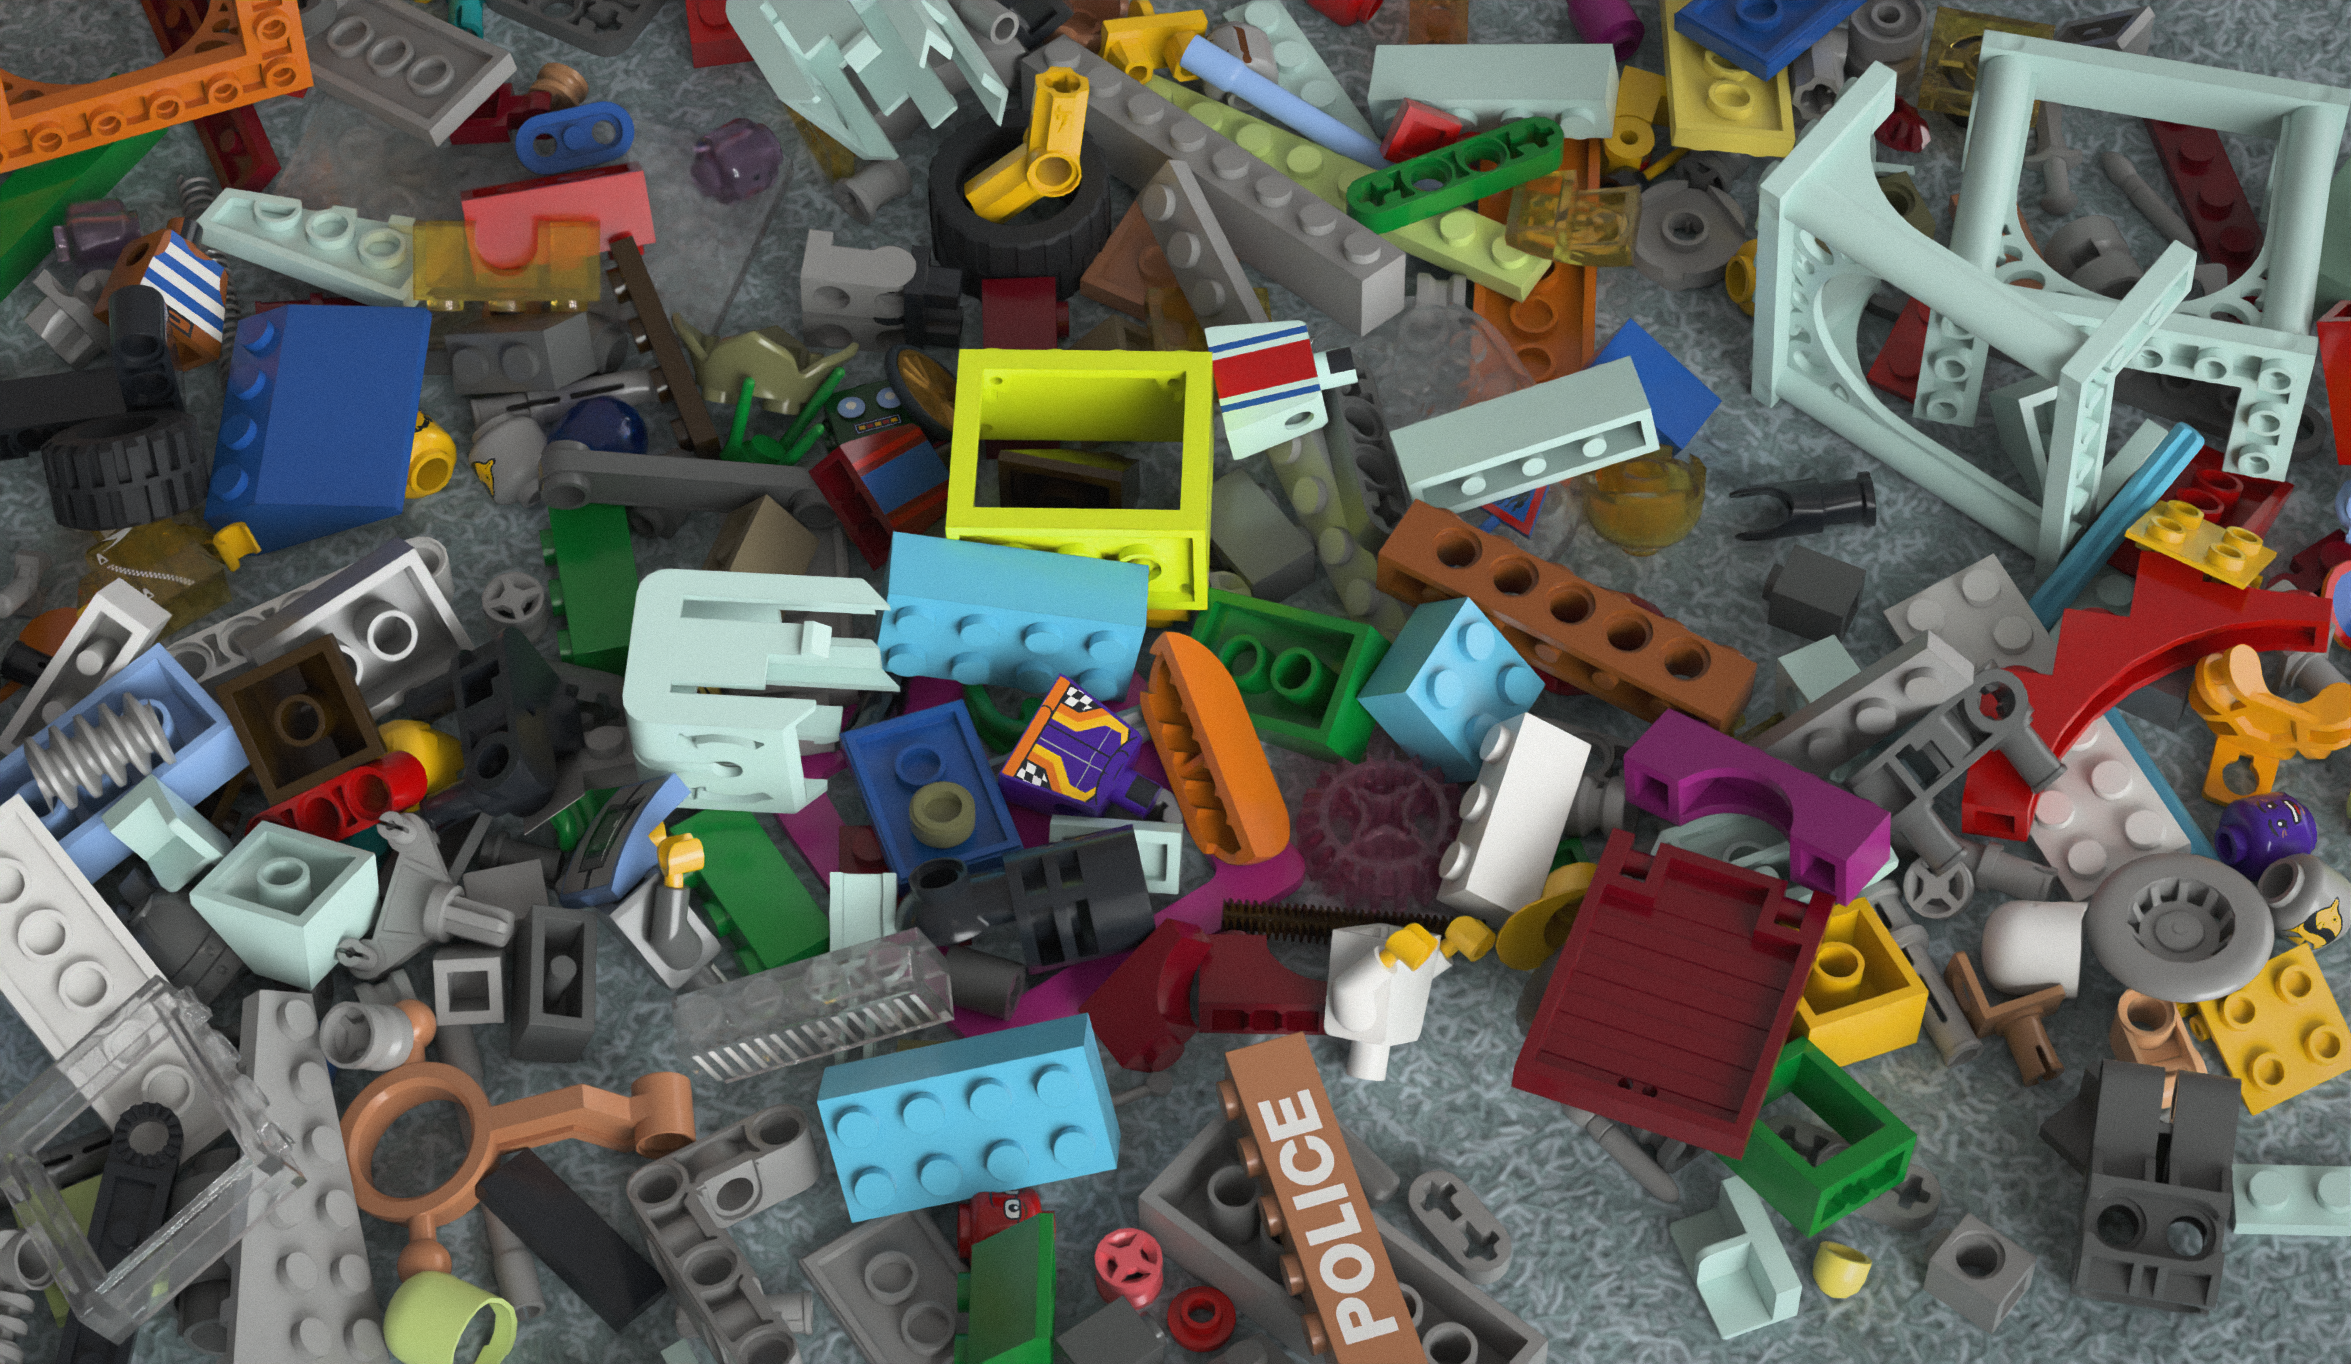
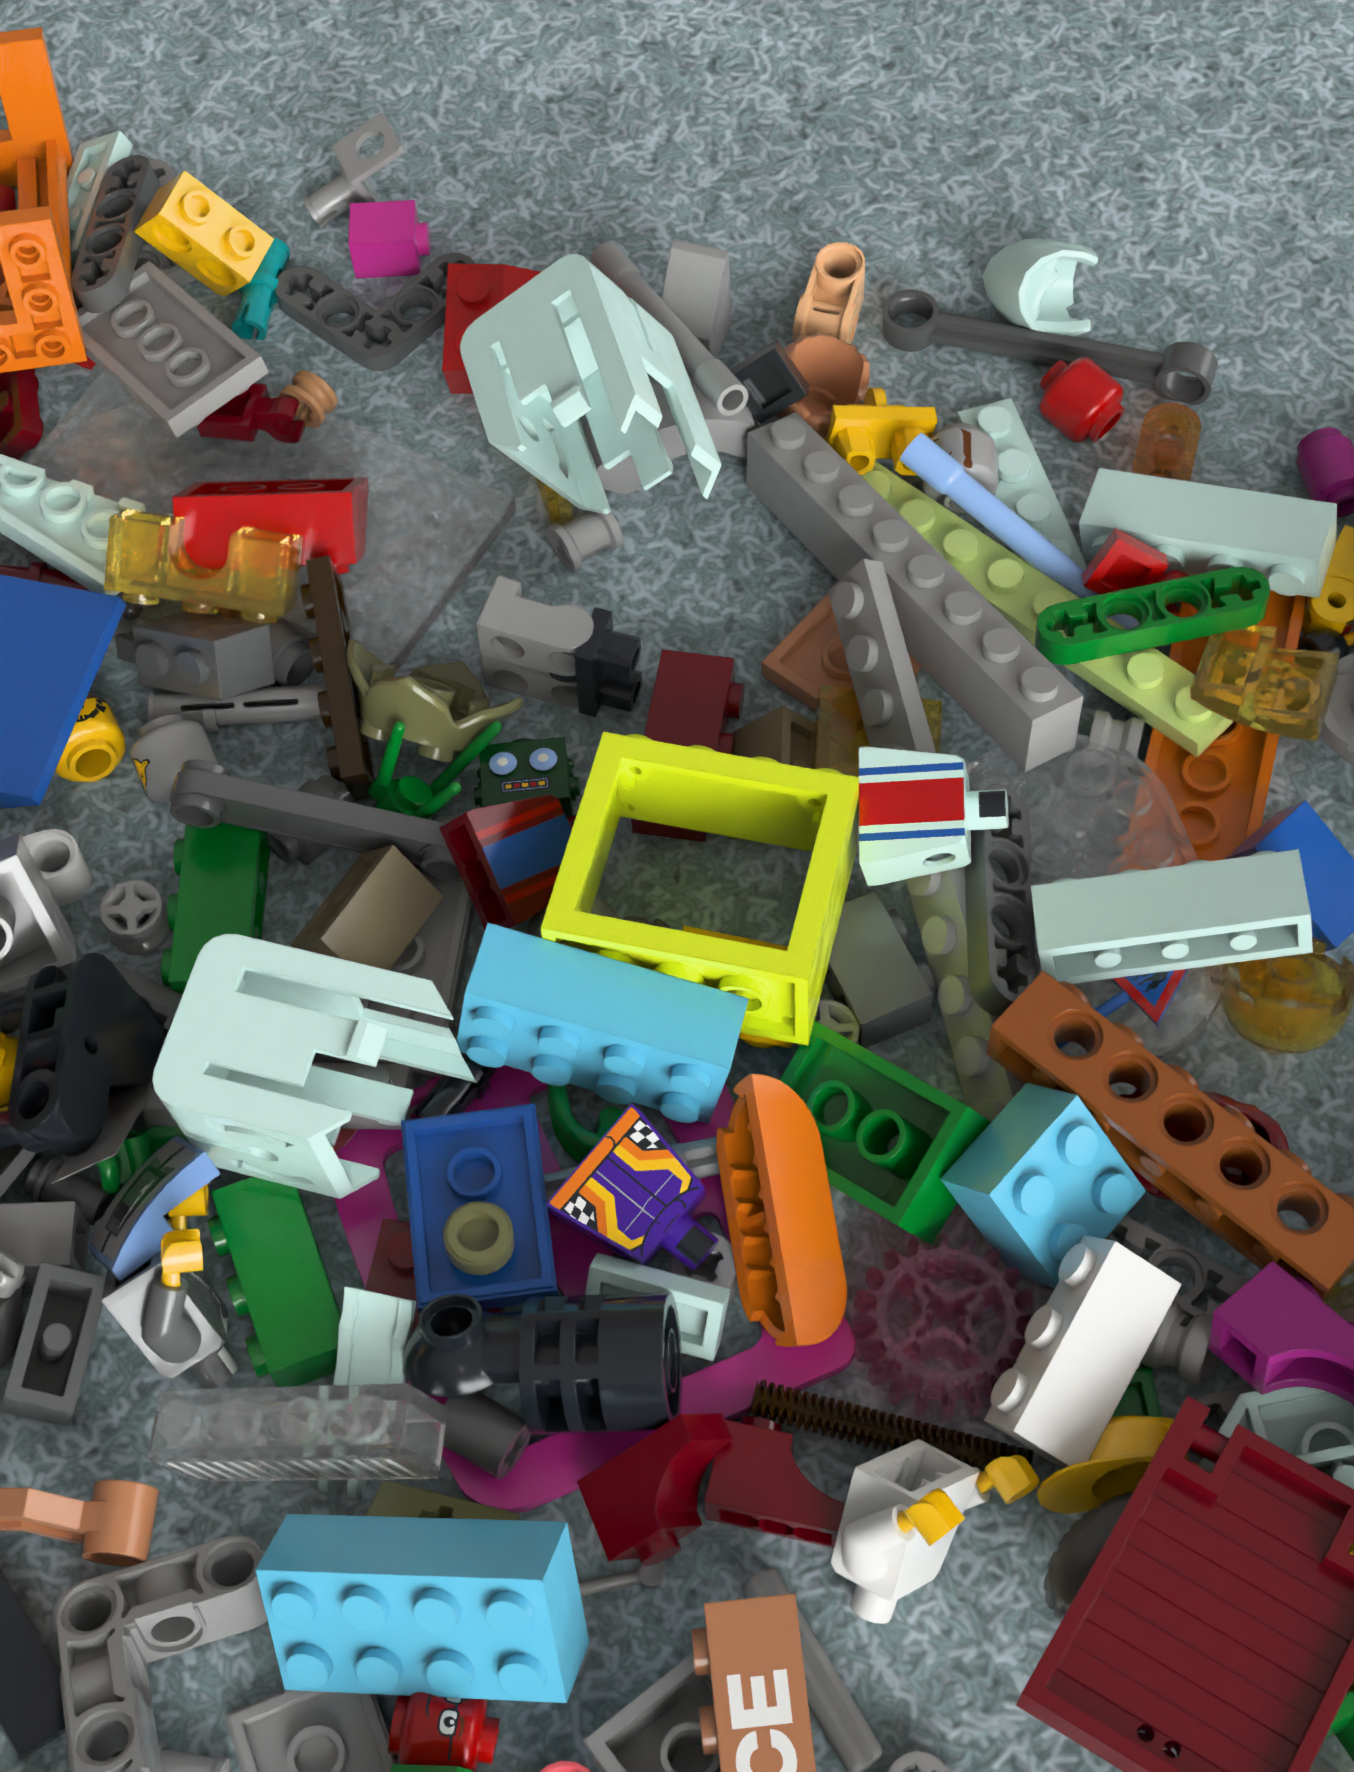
camera: 15 degrees right, 5 degrees up
(573, 138) = (311, 447): blue plate -> none
(603, 425) = (262, 749): clear blue hair -> none
(736, 161) = (455, 493): clear purple head -> none
(923, 388) = (569, 748): pearl gold wheel -> none
(989, 250) = (730, 525): black tyre -> none
(1049, 154) = (747, 537): yellow piece -> none
(1067, 479) = (699, 885): dark brown slope -> none

